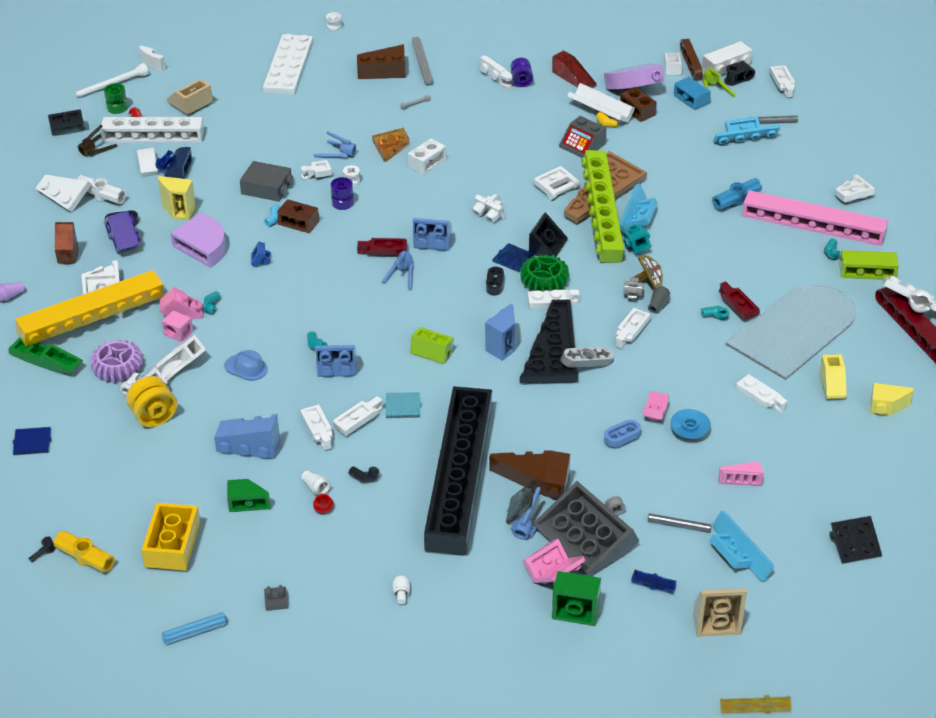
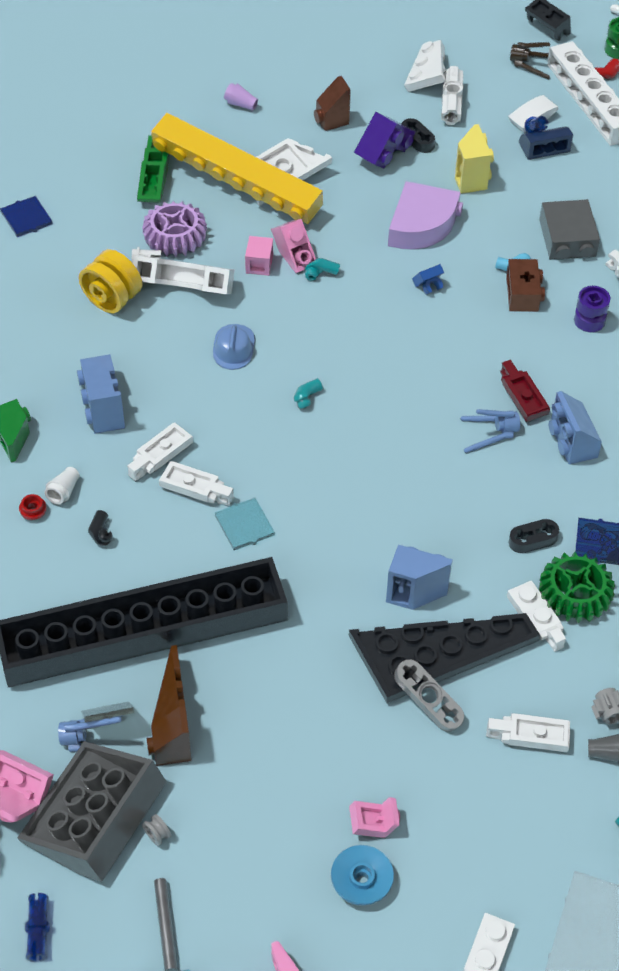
camera: 65 degrees right, 10 degrees up
(336, 360) = (276, 421): medium blue slope -> none
(431, 345) = (361, 509): lime hinge -> none
(622, 433) = (306, 793): medium blue plate -> none

